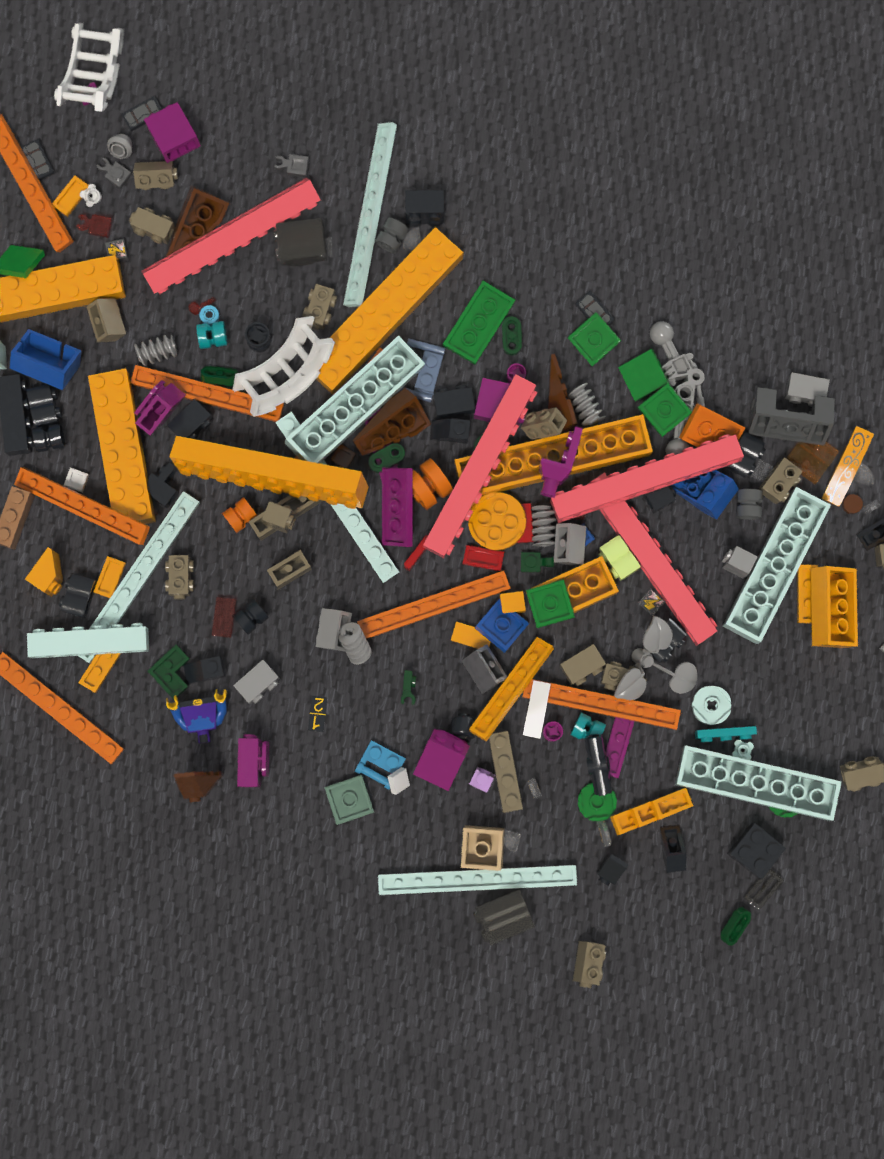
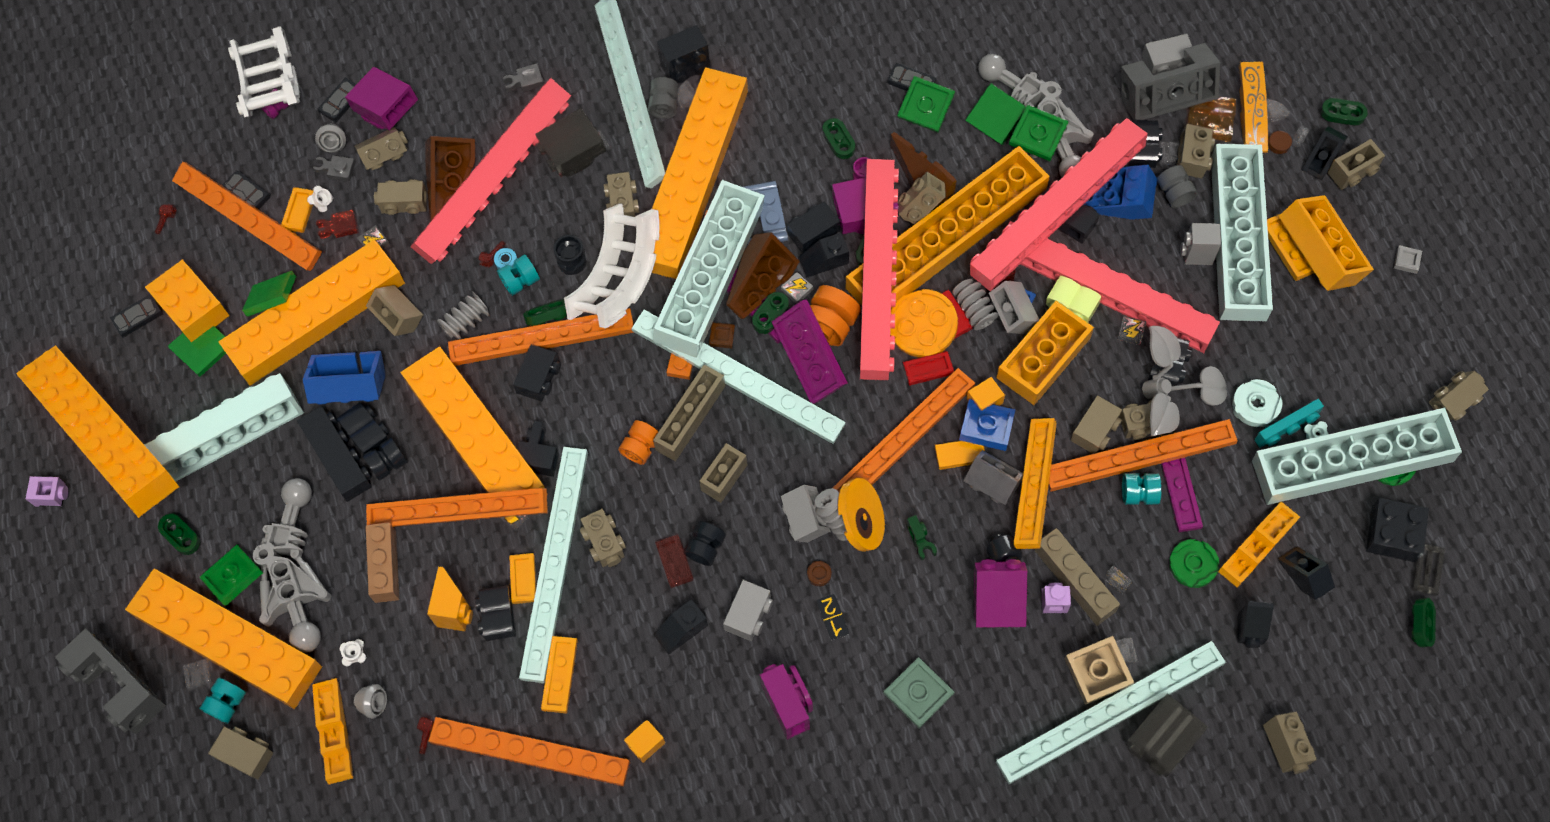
camera: 20 degrees left, 15 degrees down
(76, 480) = (436, 488): white tile -> none
(88, 642) = (531, 655): light aqua brick -> none
(139, 741) = (644, 741): none -> light orange panel
(158, 406) = (494, 366): magenta brick -> none
(165, 671) = (637, 649): dark green plate -> none
(197, 784) = (735, 751): reddish brown wedge -> none
(200, 715) = (700, 678): torso -> none
(269, 472) = (651, 374): light orange brick -> none
(278, 517) = (687, 414): dark tan brick -> none
(323, 677) = (819, 573): none -> reddish brown tile
(372, 652) = (861, 514): none -> light orange tile
(382, 758) = (933, 629): dark azure plate -> none
(398, 780) = (963, 643): white tile -> none
(415, 556) = (855, 393): red tile -> none
(417, 445) = (797, 288): none -> light grey tile
(479, 322) = (798, 141): green plate -> none
(532, 562) = (984, 348): dark green plate -> none
(536, 709) = (1073, 494): white sticker -> none
(550, 604) = (1029, 372): green tile -> none
(554, 729) = (1105, 504): magenta wheel -> none
(556, 473) = (961, 232): magenta plate -> none
(585, 405) = (958, 170): light grey piece -> none
(598, 764) = (1175, 516): black piece -> none
(604, 833) = (1222, 591): clear tile -> none
(708, 426) = (1089, 126): orange plate -> none

